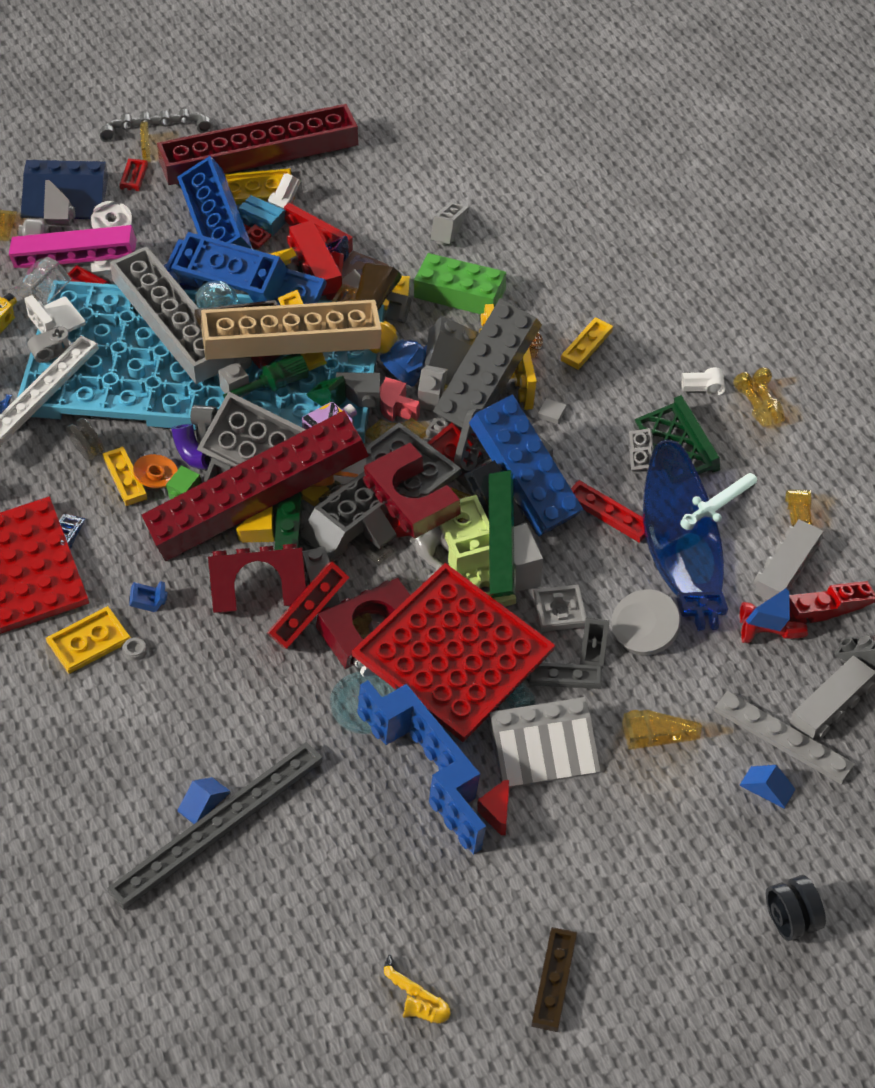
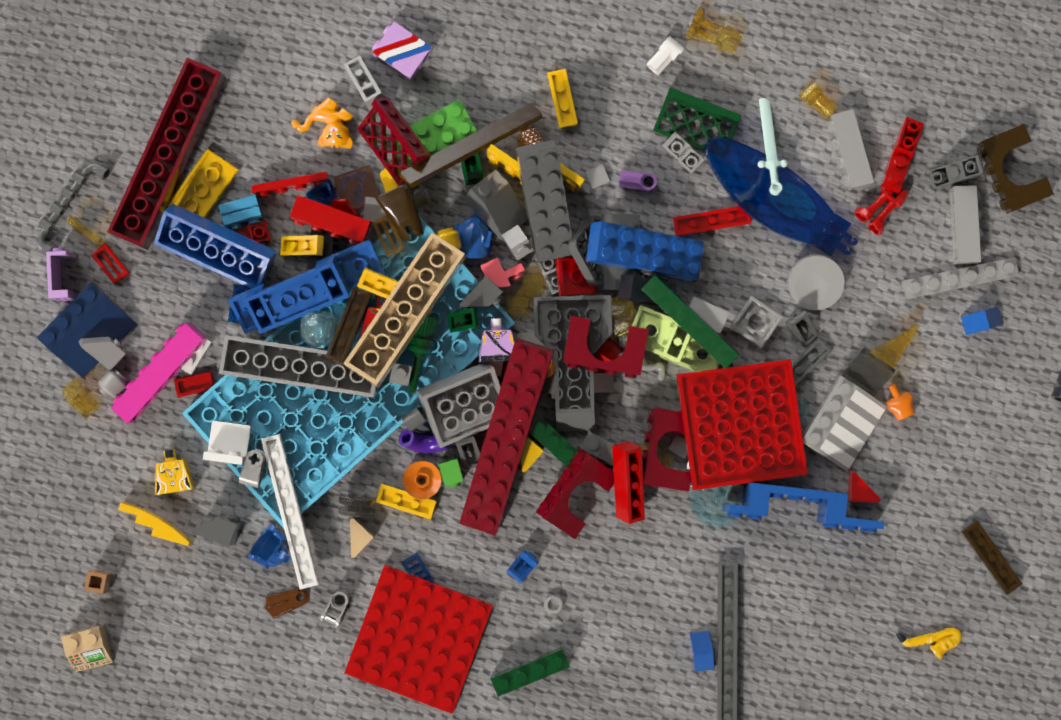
camera: 45 degrees left, 35 degrees up
(42, 281) = (177, 425): clear slope -> none
(57, 465) = (359, 536): none -> tan slope
(72, 678) = (530, 672): none -> dark green arch
(88, 639) = (521, 626): yellow tile -> none
(93, 139) = (55, 277): none -> lavender panel
(108, 209) = (142, 311): white plate -> none
(285, 191) = (237, 181): white piece -> none
(391, 227) = (335, 132): none -> light orange animal
(426, 252) = (399, 131): none -> dark red fence
(464, 292) = (471, 145): none -> dark brown tile
(466, 314) = (472, 170): none -> dark green slope
(503, 224) = (402, 50): none -> panel
(583, 438) = (635, 181): none -> medium lavender piece
(613, 721) = (868, 372): none -> clear smoke tile
(615, 779) = (901, 404): none -> orange piece
(772, 613) = (886, 205): blue slope -> none

